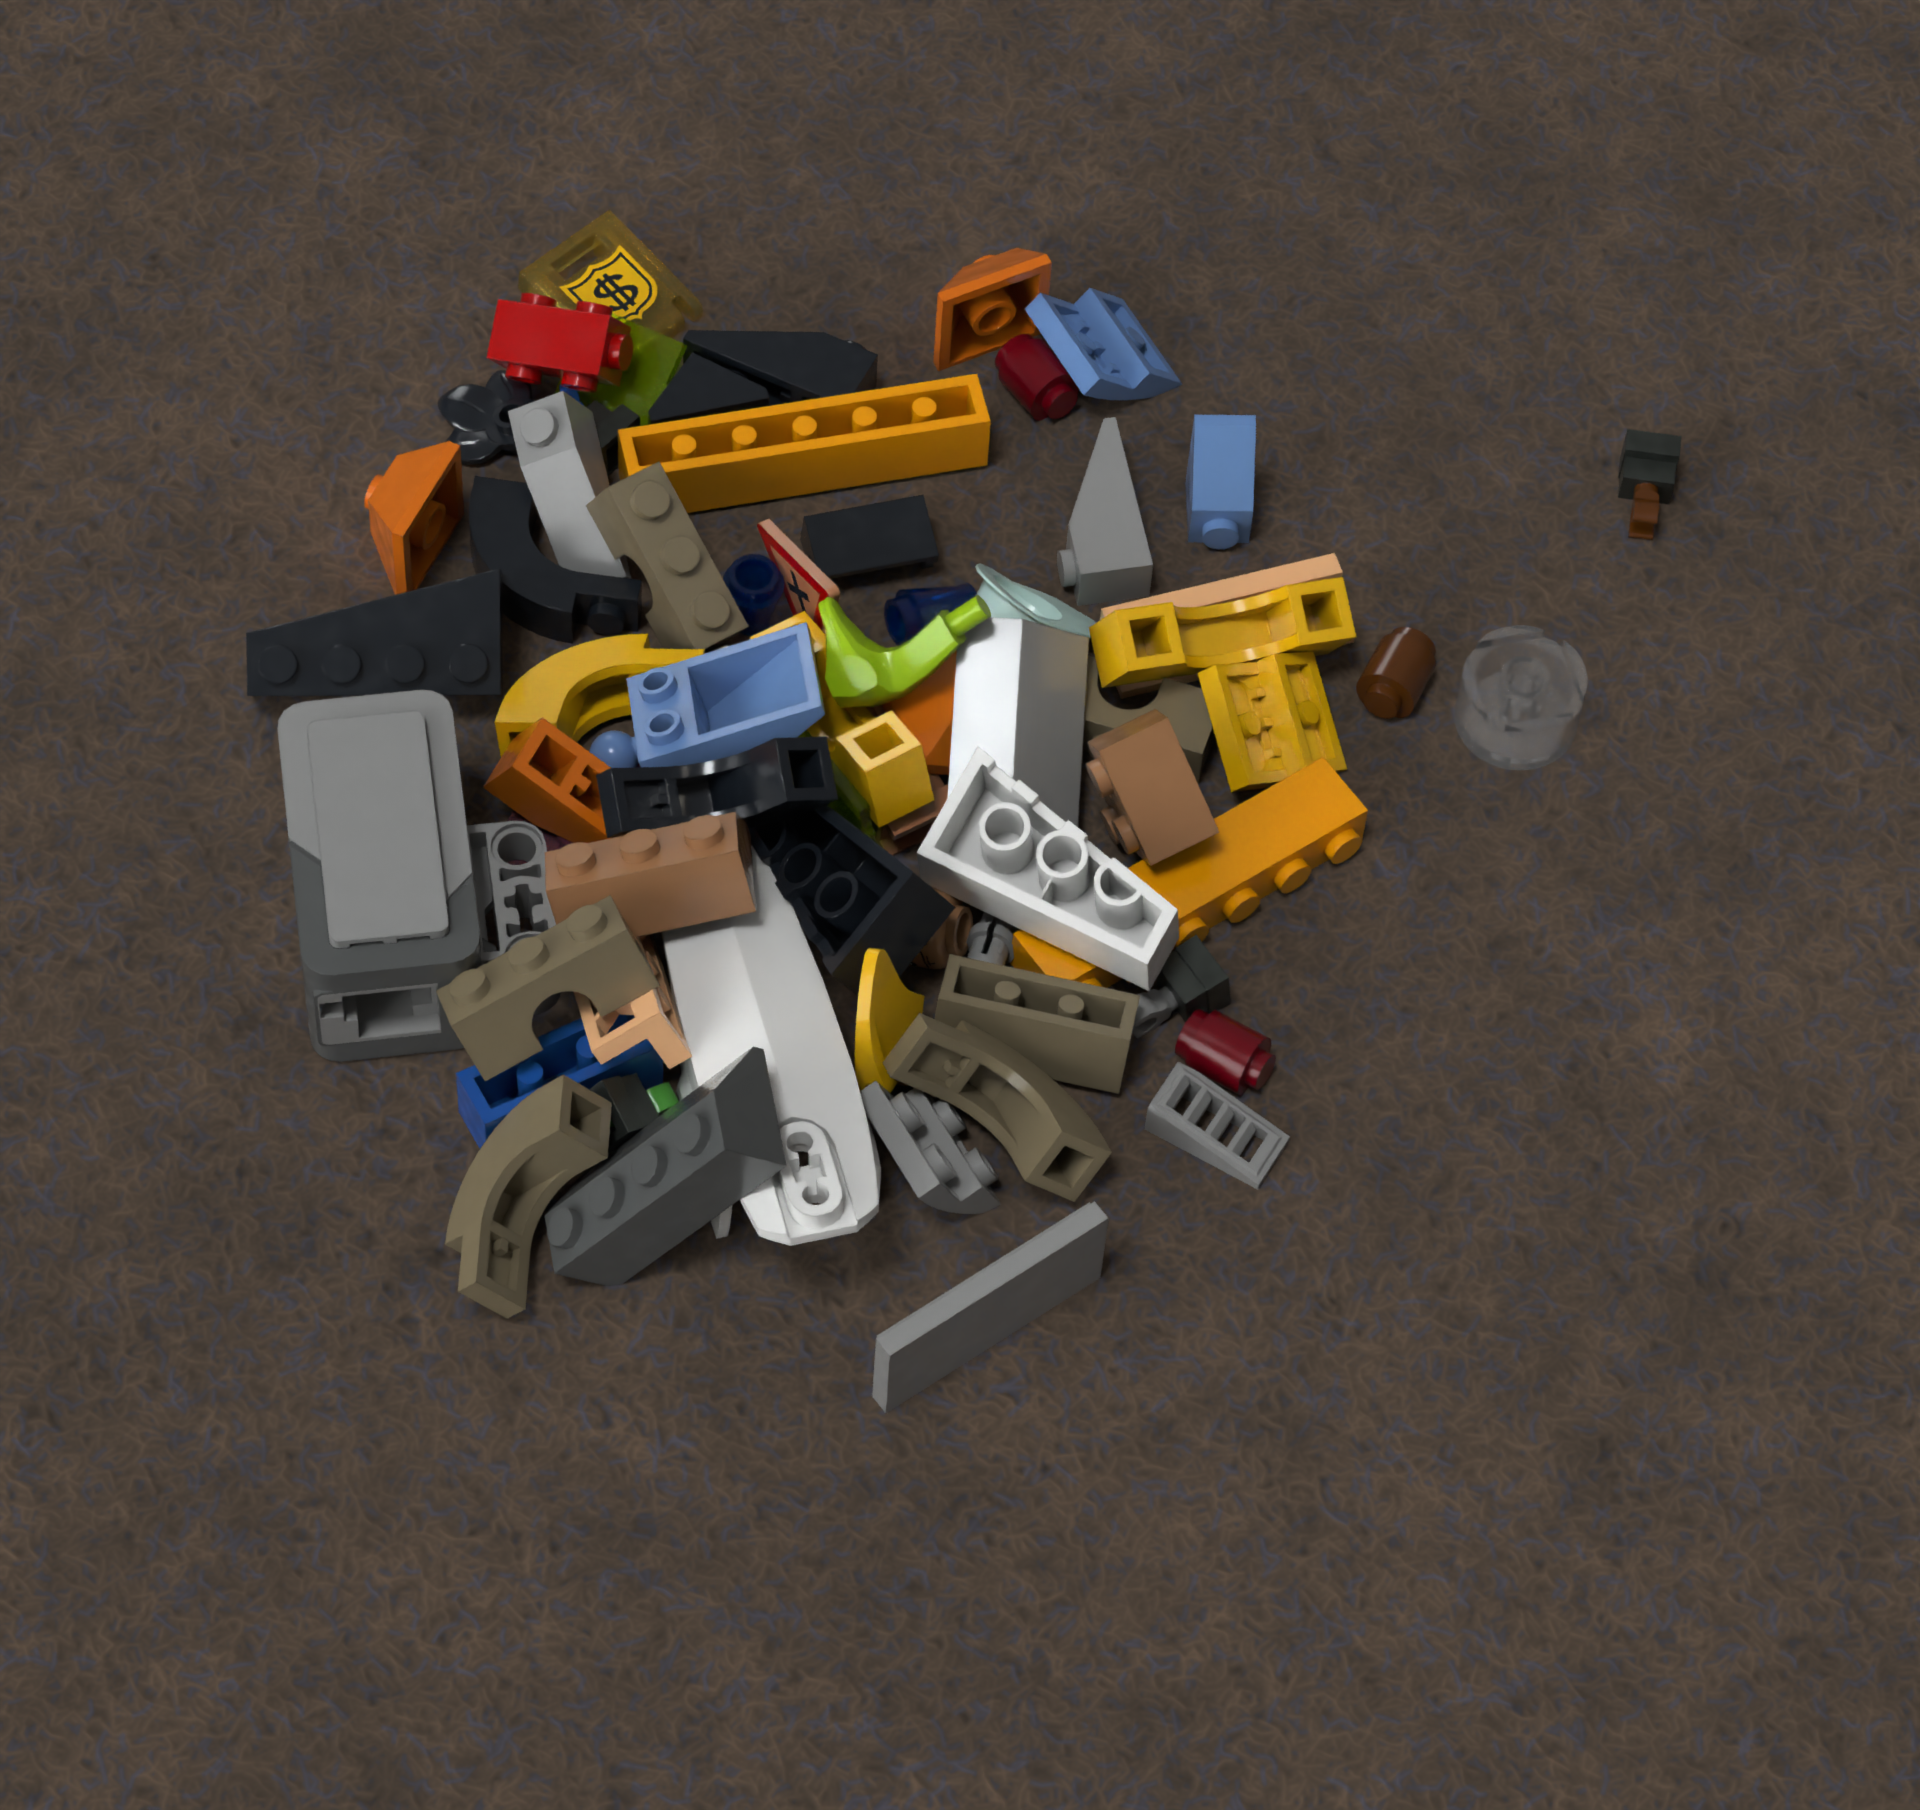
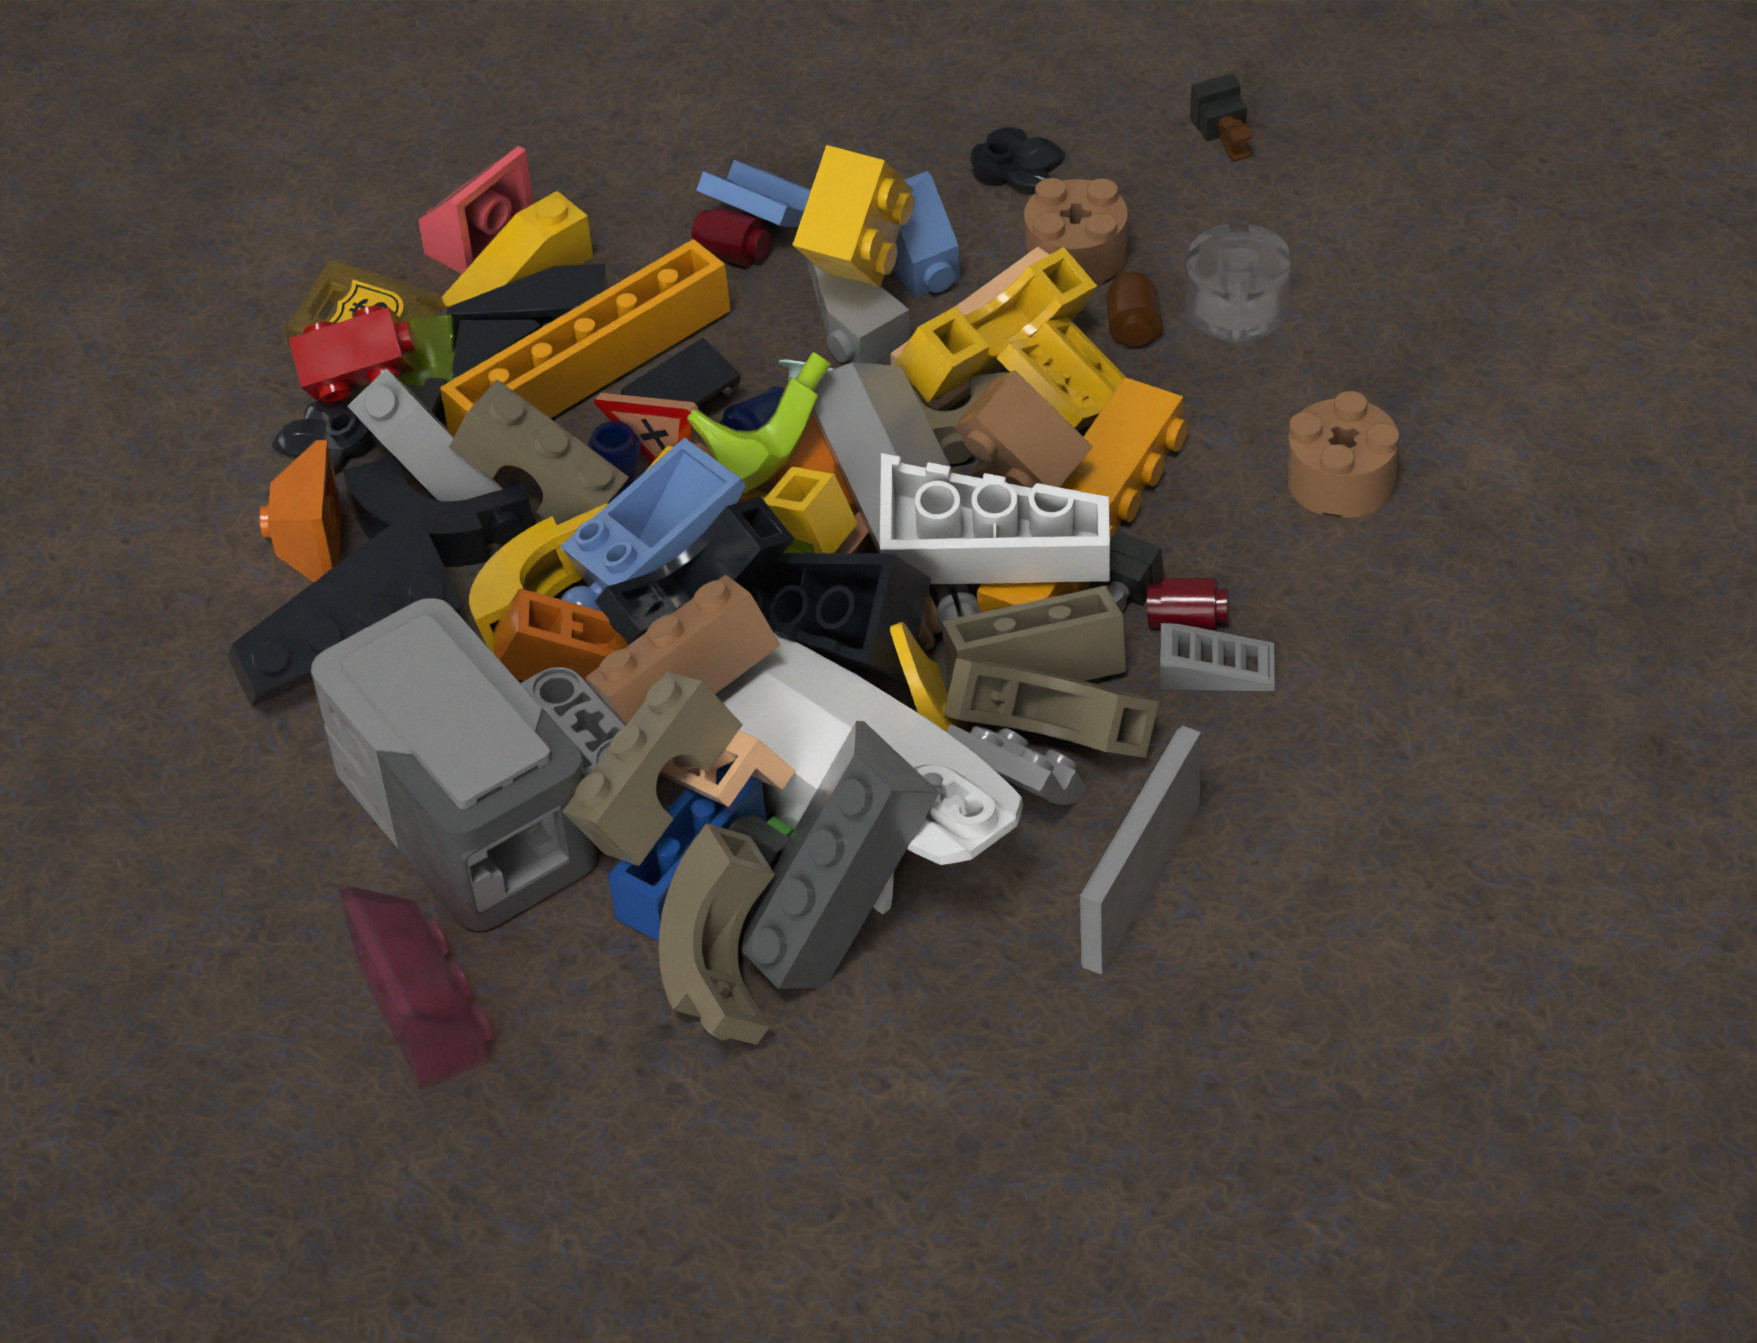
camera: 20 degrees left, 10 degrees down
(219, 1091) = (416, 986): none -> clear pink slope
(791, 231) = (477, 211): none -> coral slope
(826, 292) = (533, 240): none -> yellow slope
(987, 305) = (668, 199): orange slope -> none
(1135, 442) = (854, 216): none -> yellow brick
(1394, 550) = (1083, 219): none -> medium nougat brick
(1397, 423) = (1014, 158): none -> black plate
(1492, 960) = (1342, 456): none -> medium nougat brick

